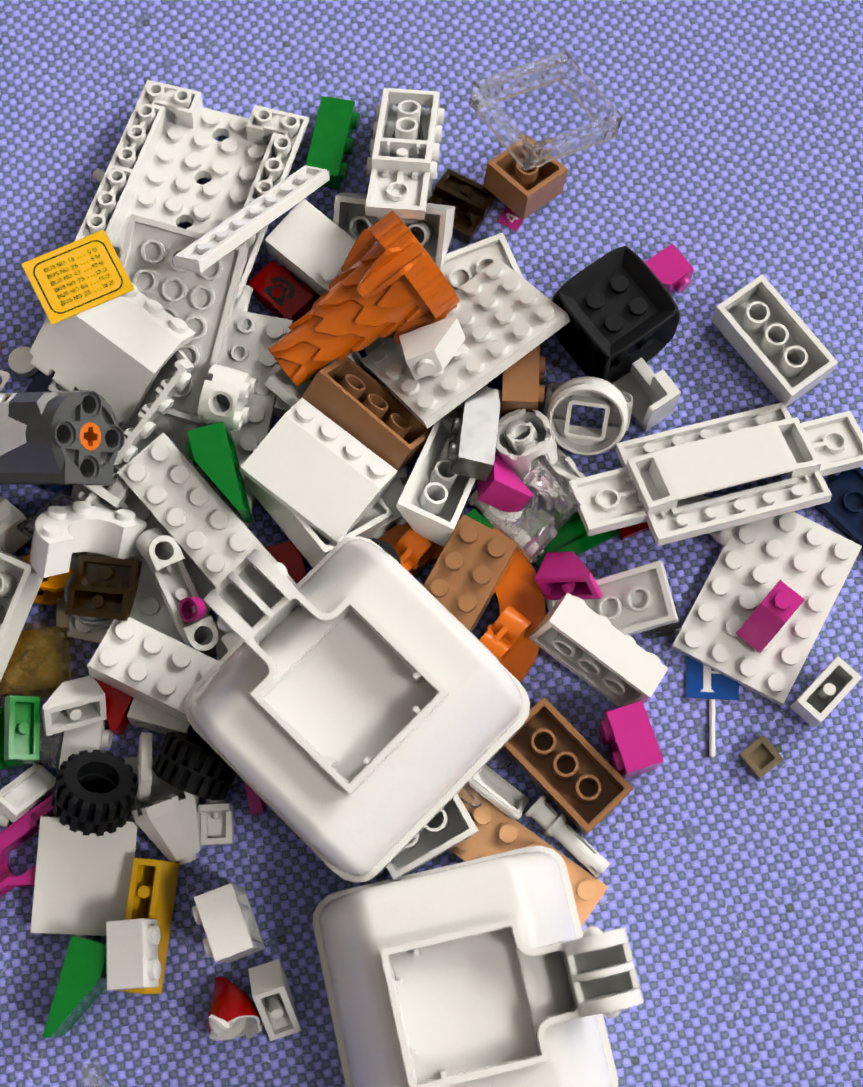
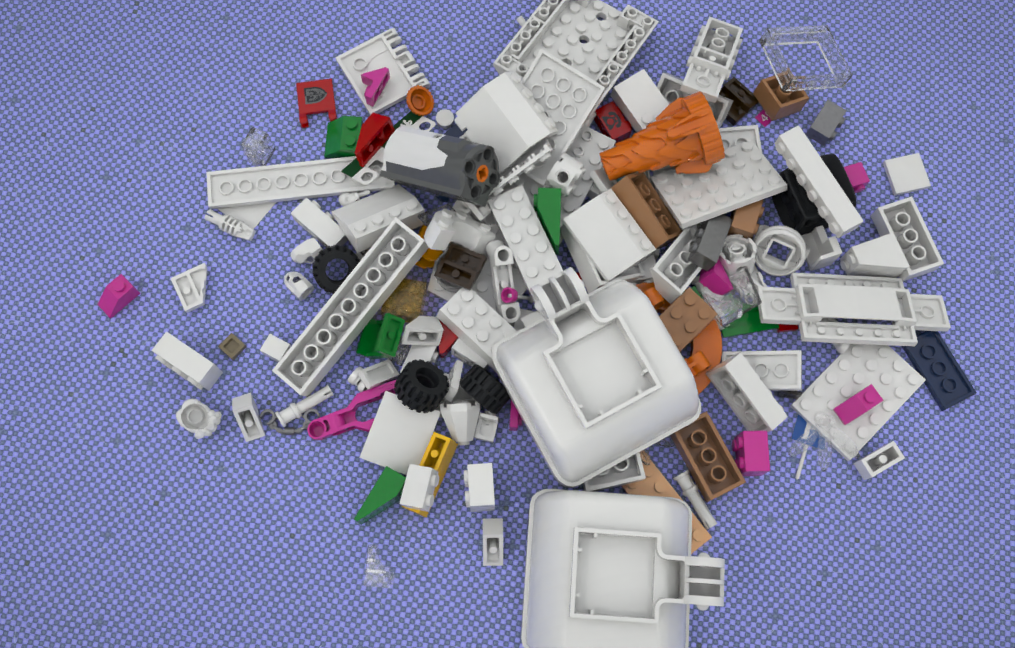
camera: 10 degrees right, 0 degrees up
(61, 618) = (429, 275): dark tan tile -> none
(77, 277) = (499, 76): yellow sticker -> none
(231, 1012) = (465, 541): hat -> none
(250, 219) = (611, 72): white tile -> none
(333, 138) = (667, 41): green brick -> none
(432, 346) = (699, 180): white slope -> none
(499, 792) = (662, 460): white tile -> none
(566, 574) = (740, 340): dark pink slope -> none
(605, 198) = (826, 122): none -> flat silver brick
(610, 296) = (818, 182): none -> white brick
(734, 384) = (875, 258): none -> white slope
(738, 694) = (824, 443): none -> clear plant
(747, 241) = (906, 174): none -> white tile
(760, 757) = (826, 488): dark tan tile -> none

